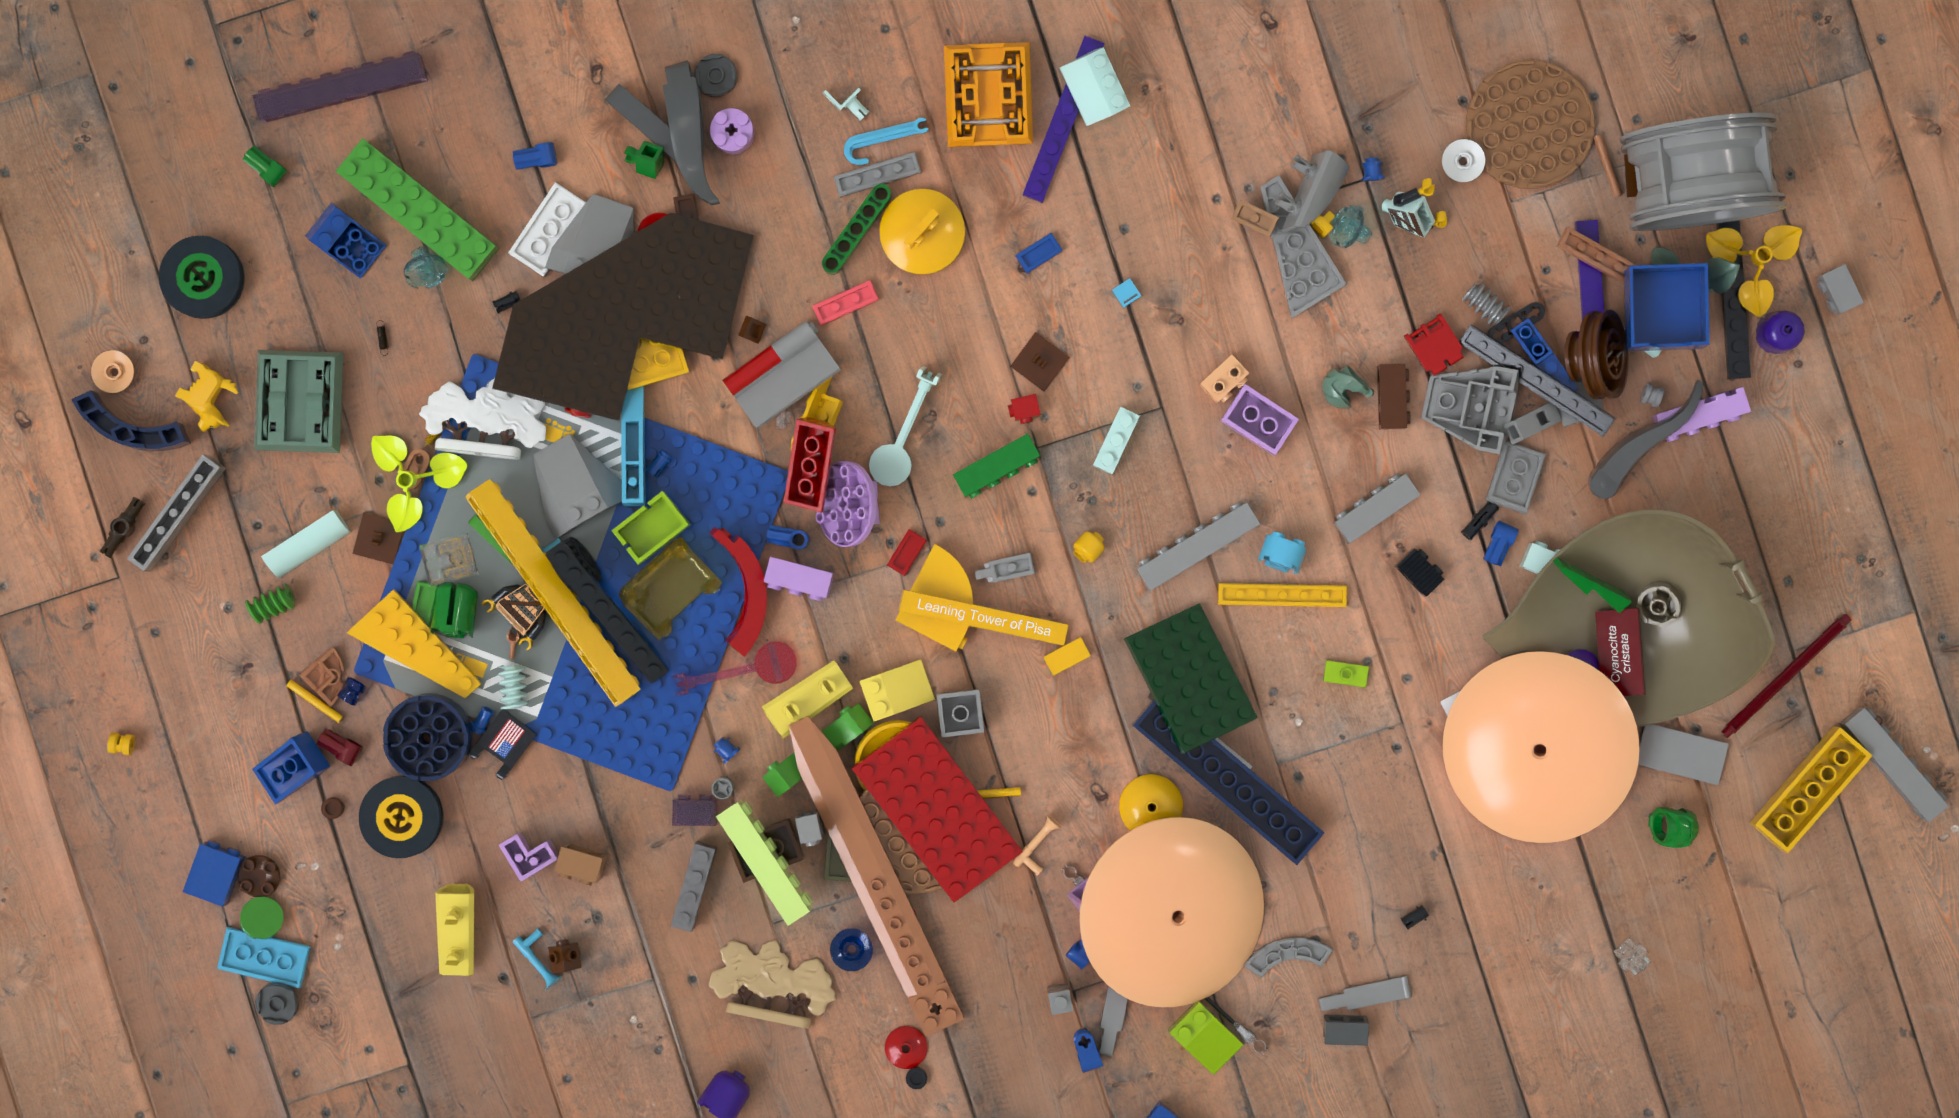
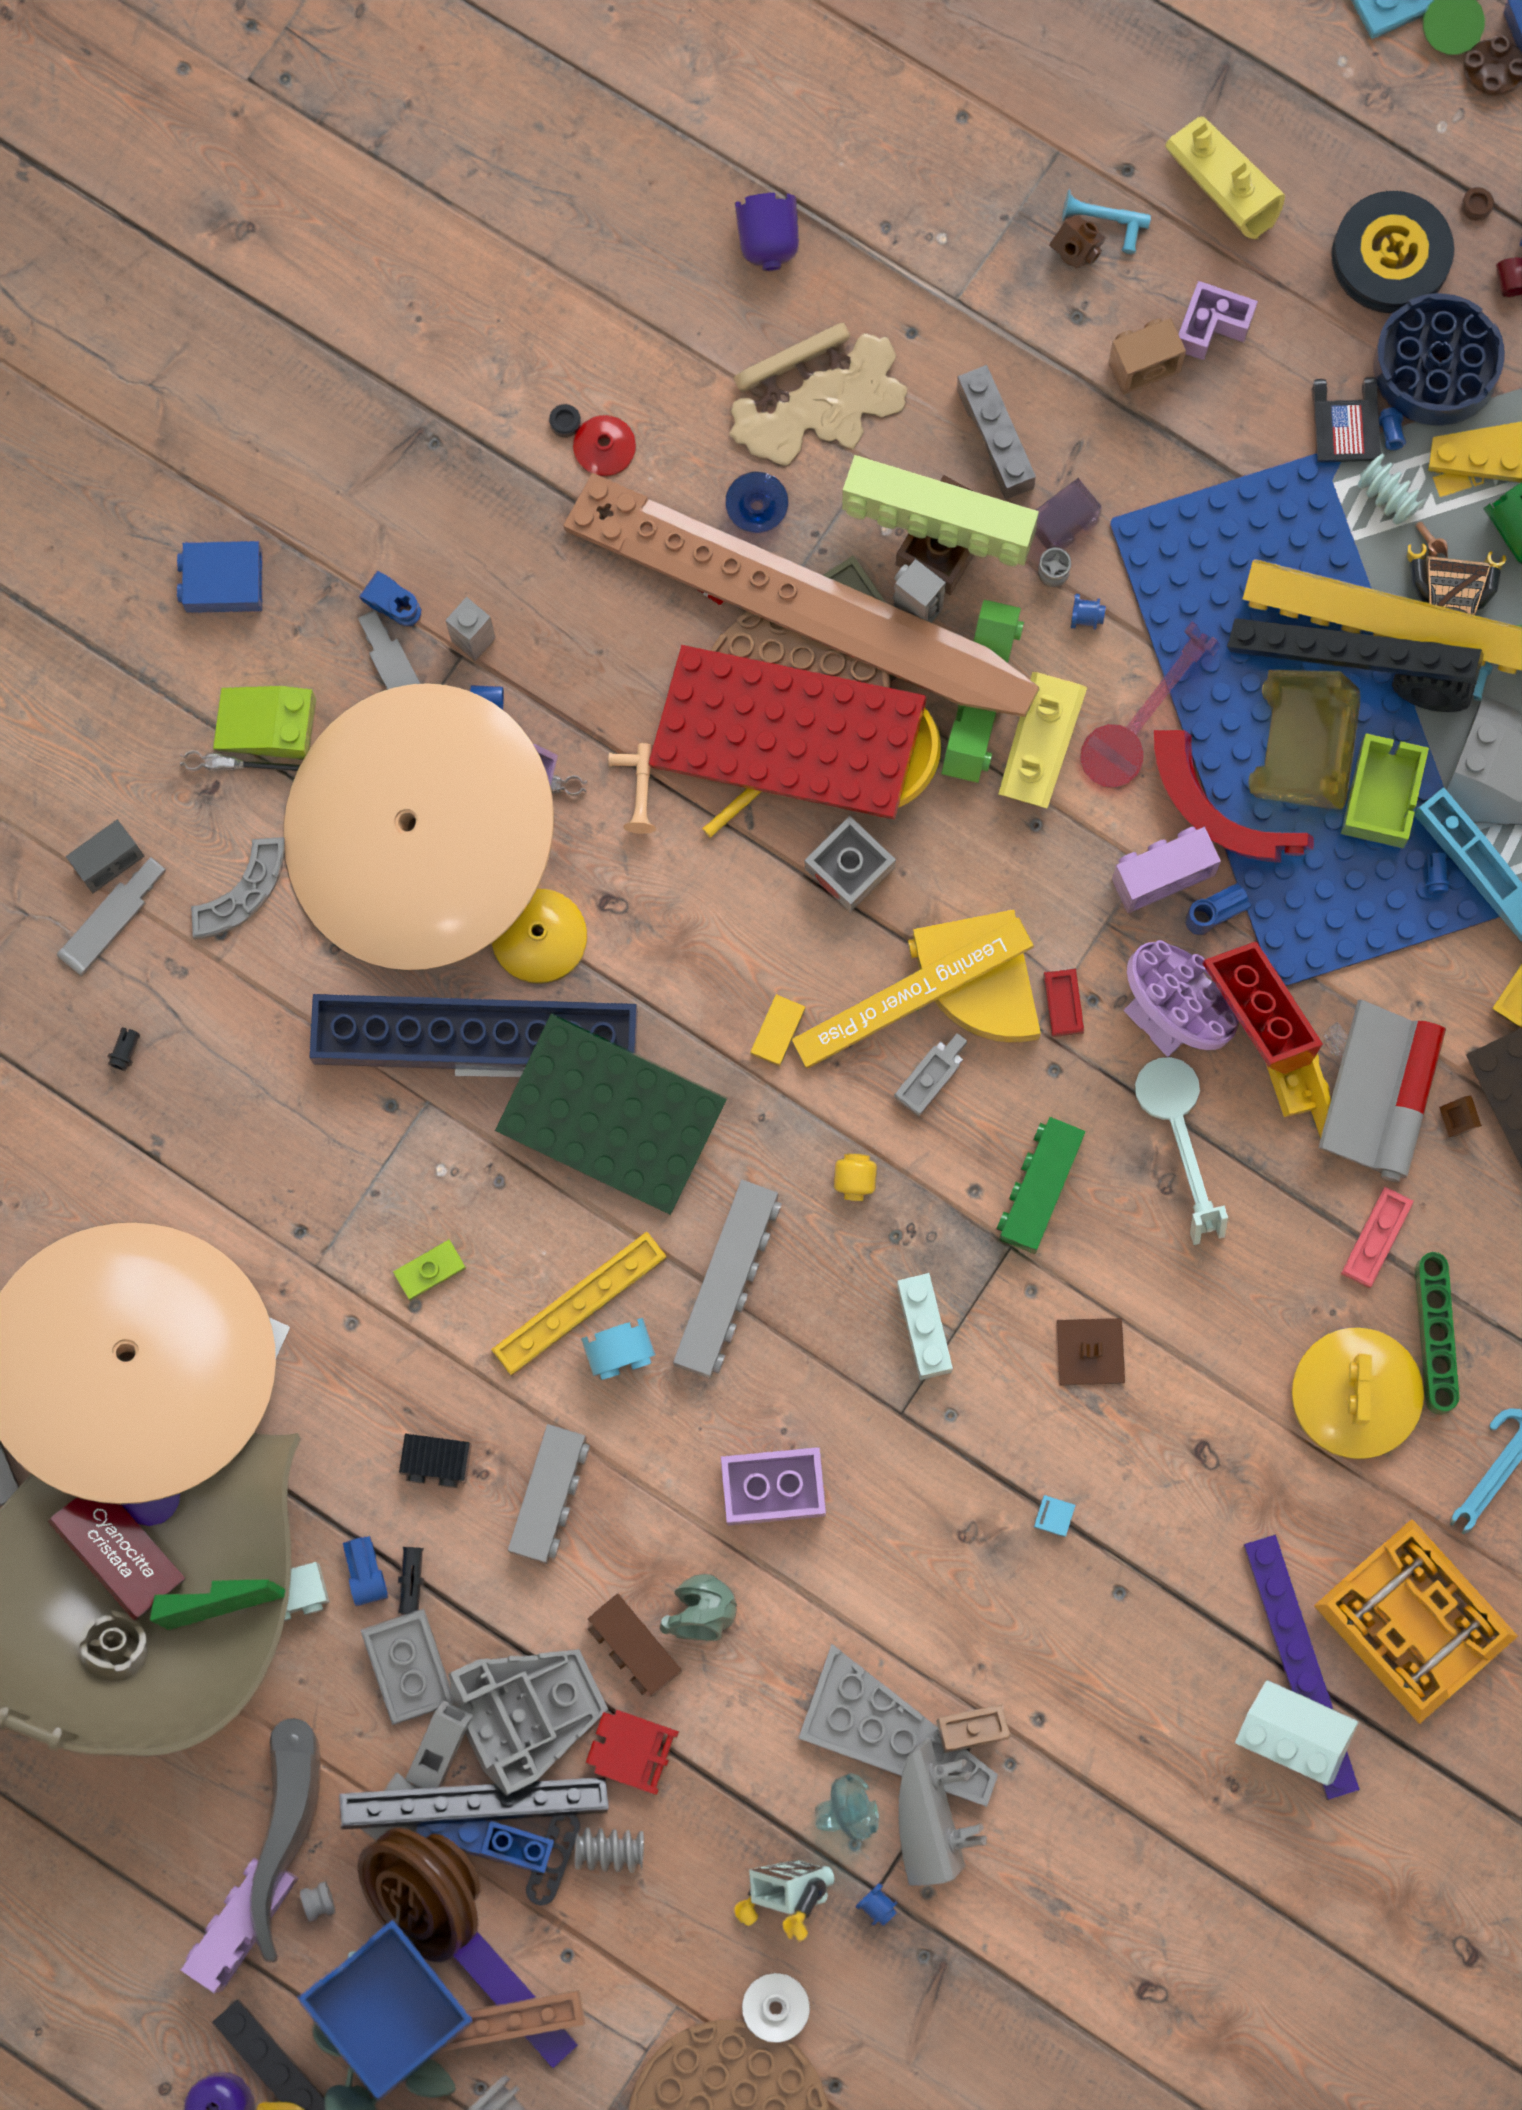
camera: 145 degrees right, 10 degrees down
(878, 173) = (1466, 1420): light grey tile -> none
(897, 690) = (945, 833): light yellow slope -> none
(1024, 408) = (1063, 1279): red brick -> none
(1039, 253) = (1197, 1480): blue tile -> none
(1224, 379) = (853, 1504): light nougat brick -> none
(1321, 224) = (886, 1787): yellow tile -> none

